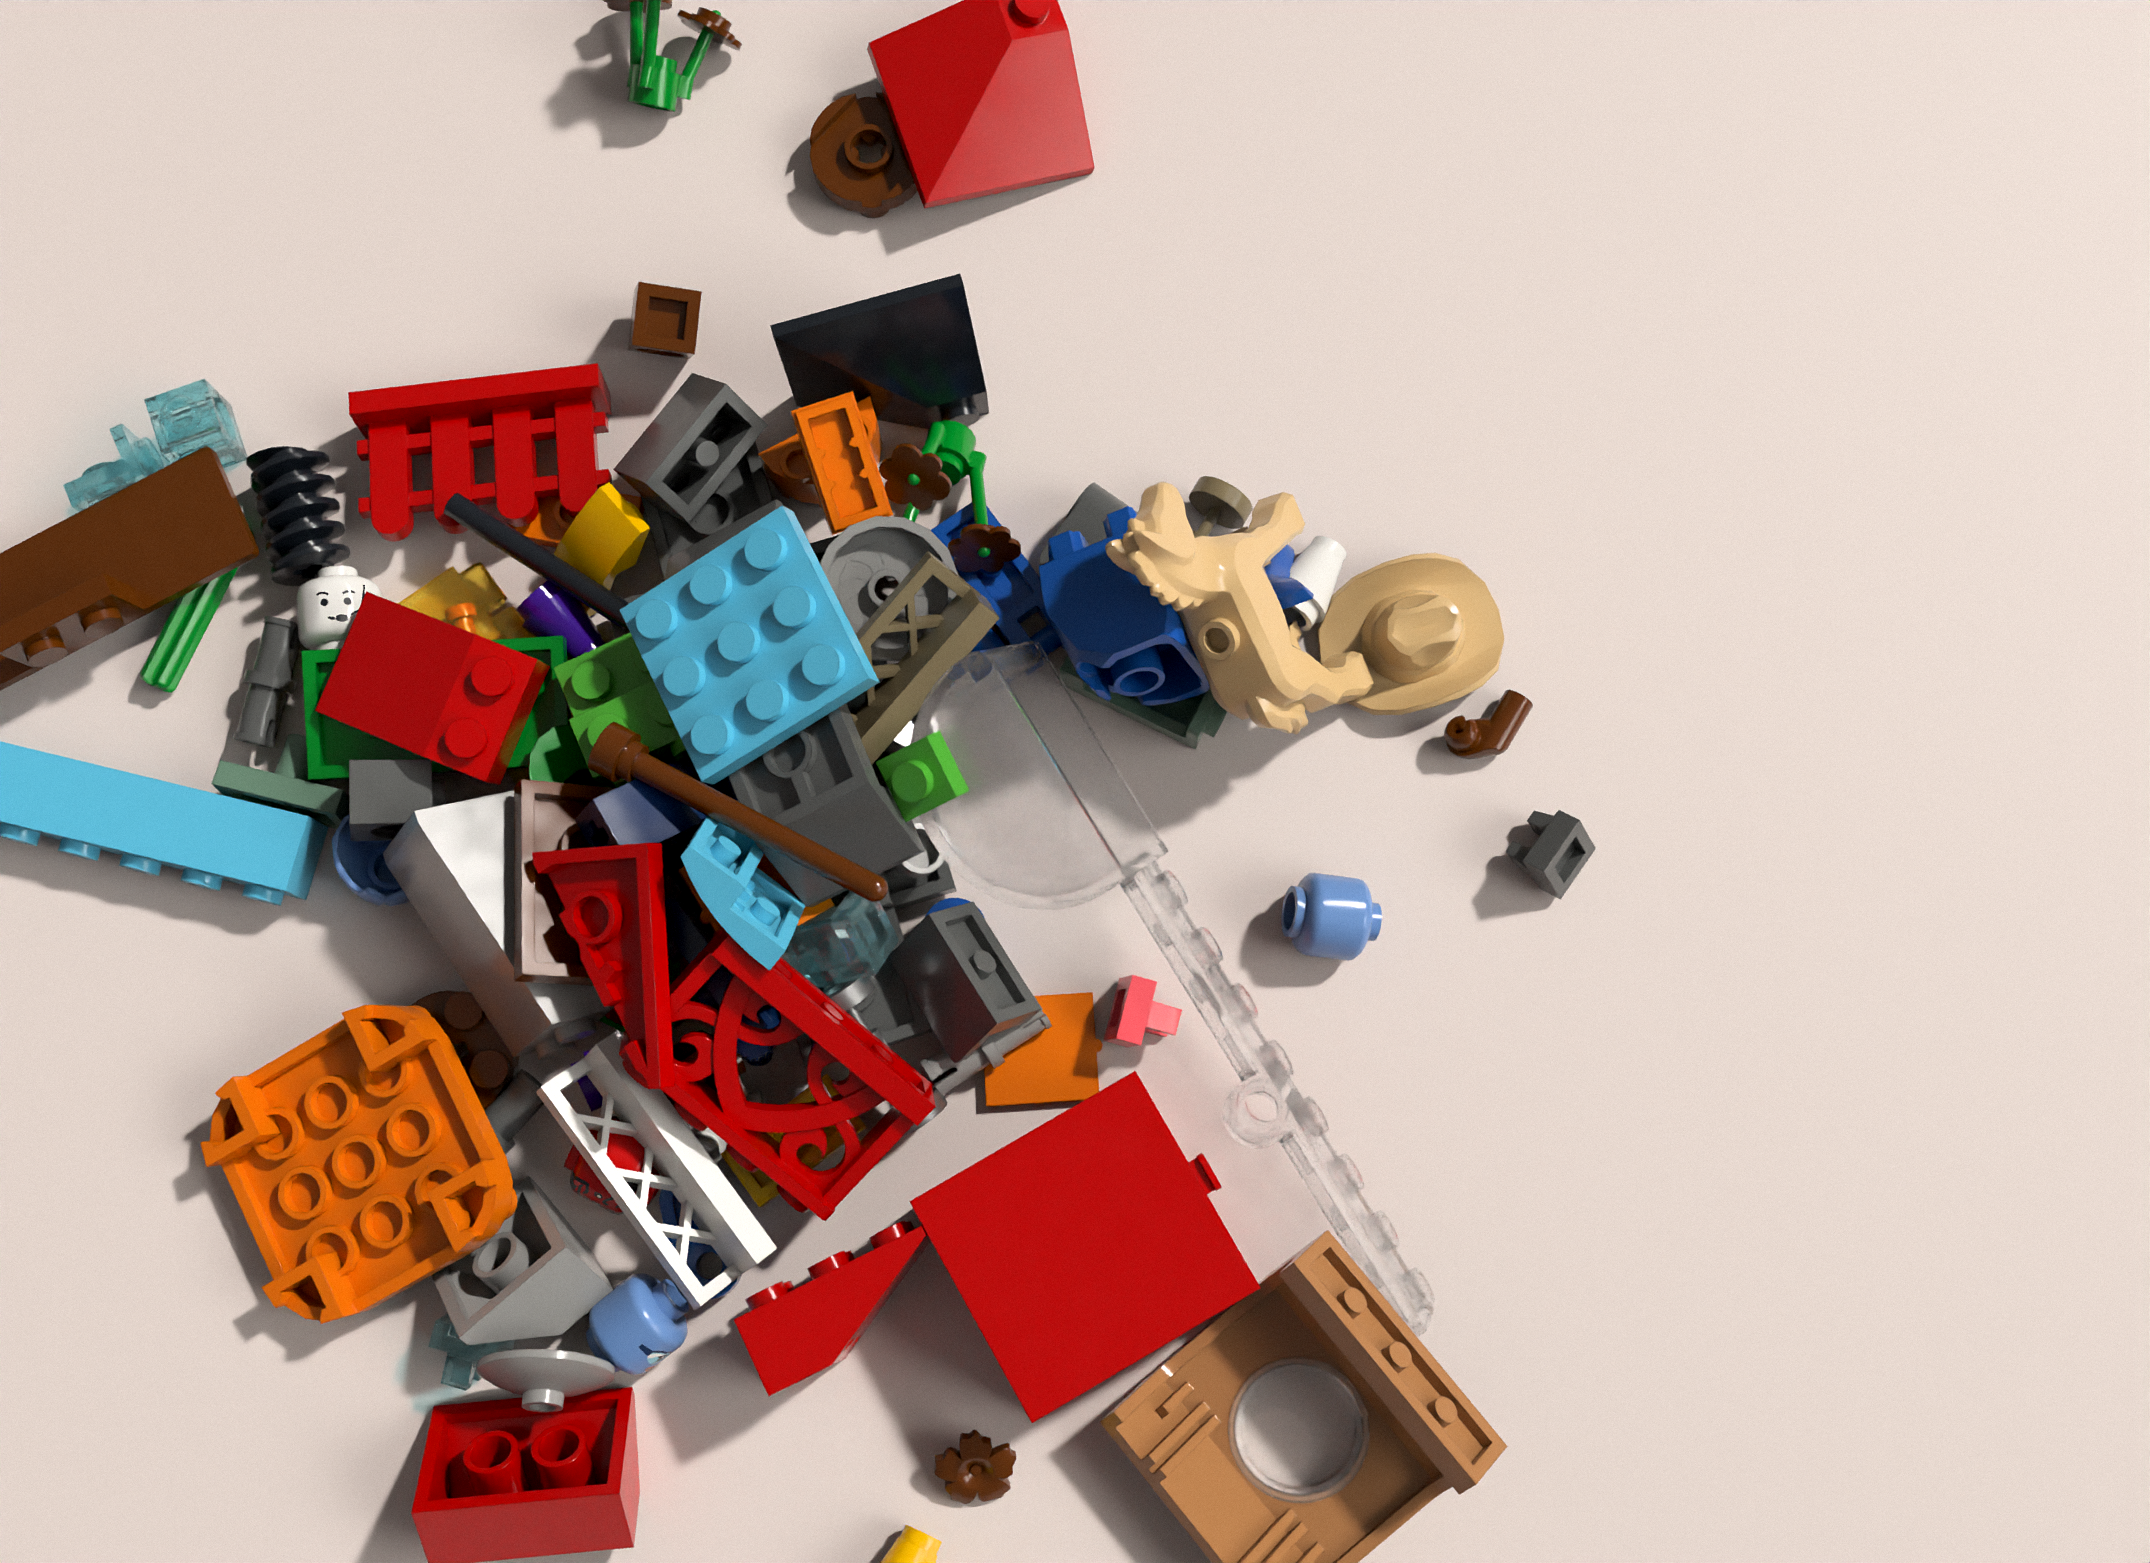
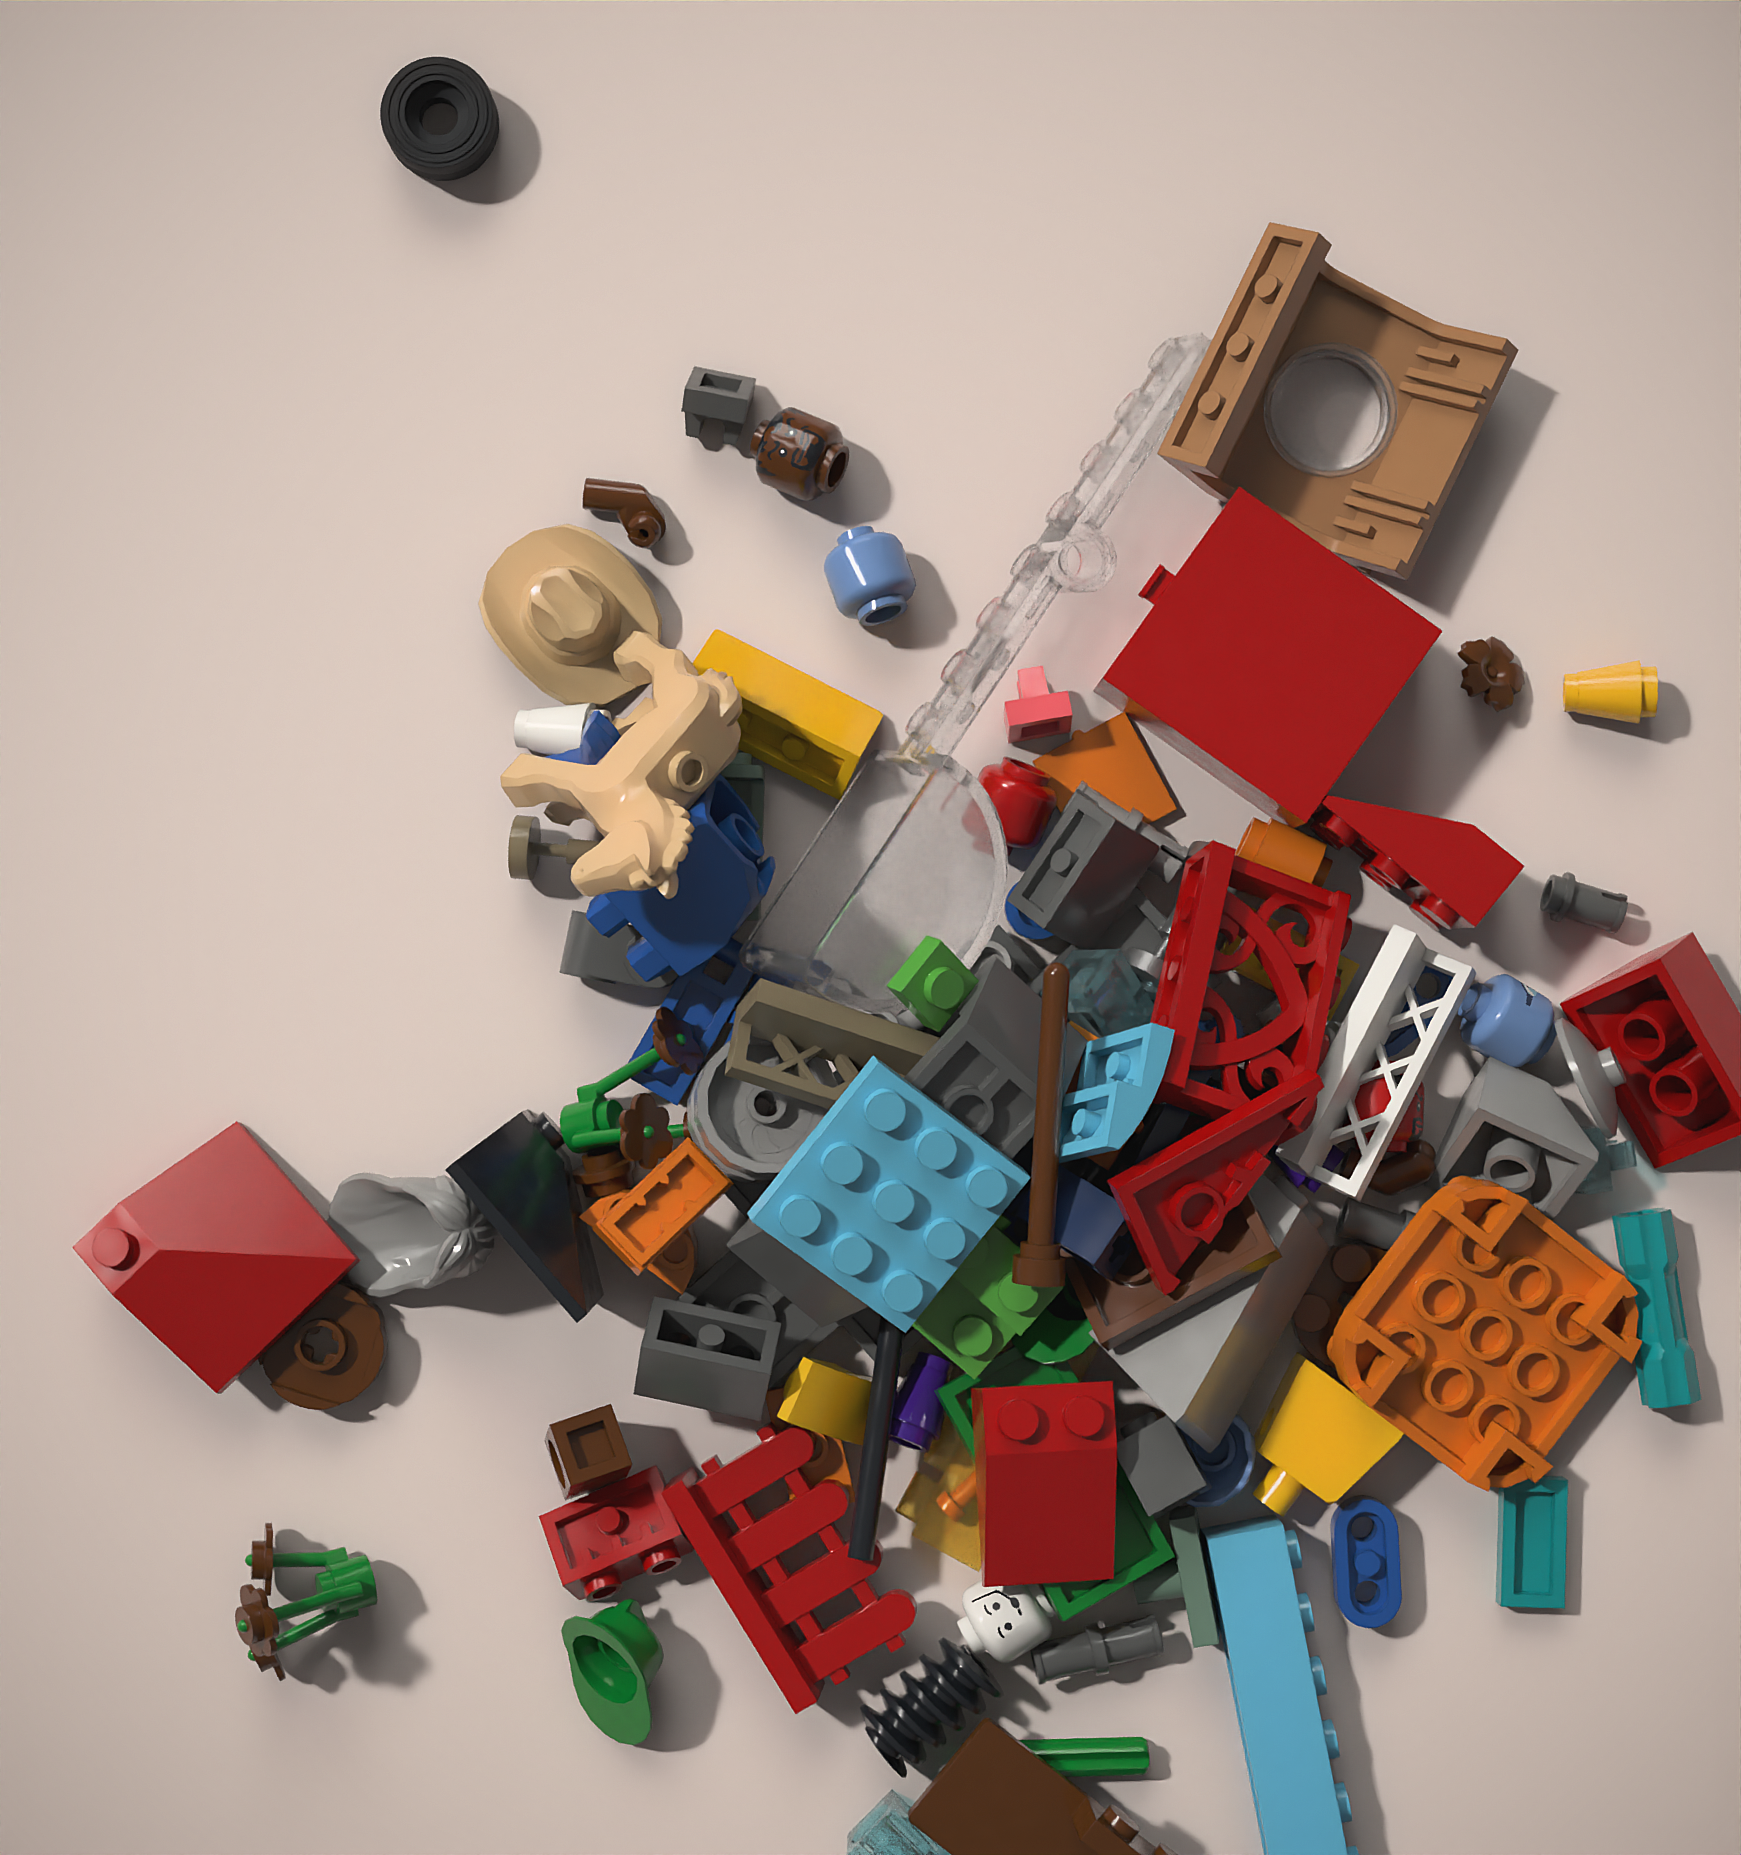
camera: 120 degrees left, 10 degrees up
(150, 1121) = (1532, 1543): none -> teal tile
(221, 958) = (1366, 1559): none -> blue plate
(345, 1354) = (1649, 1259): none -> teal axle
(348, 960) = (1317, 1438): none -> yellow torso
(473, 270) = (612, 1668): none -> green piece
(549, 1155) = (1397, 1172): none -> reddish brown arm
(583, 314) = (615, 1536): none -> red bracket
(714, 1454) = (1583, 903): none -> dark grey pin
(893, 1182) = (1285, 850): none -> orange brick
(898, 432) = (604, 1172): none -> reddish brown plate
(931, 245) = (409, 1231): none -> light grey hair
(1059, 950) = (1021, 800): none -> red head
(1238, 786) = (792, 716): none -> yellow panel
(1472, 903) = (799, 454): none -> reddish brown head
(1948, 693) = (434, 82): none -> black tyre

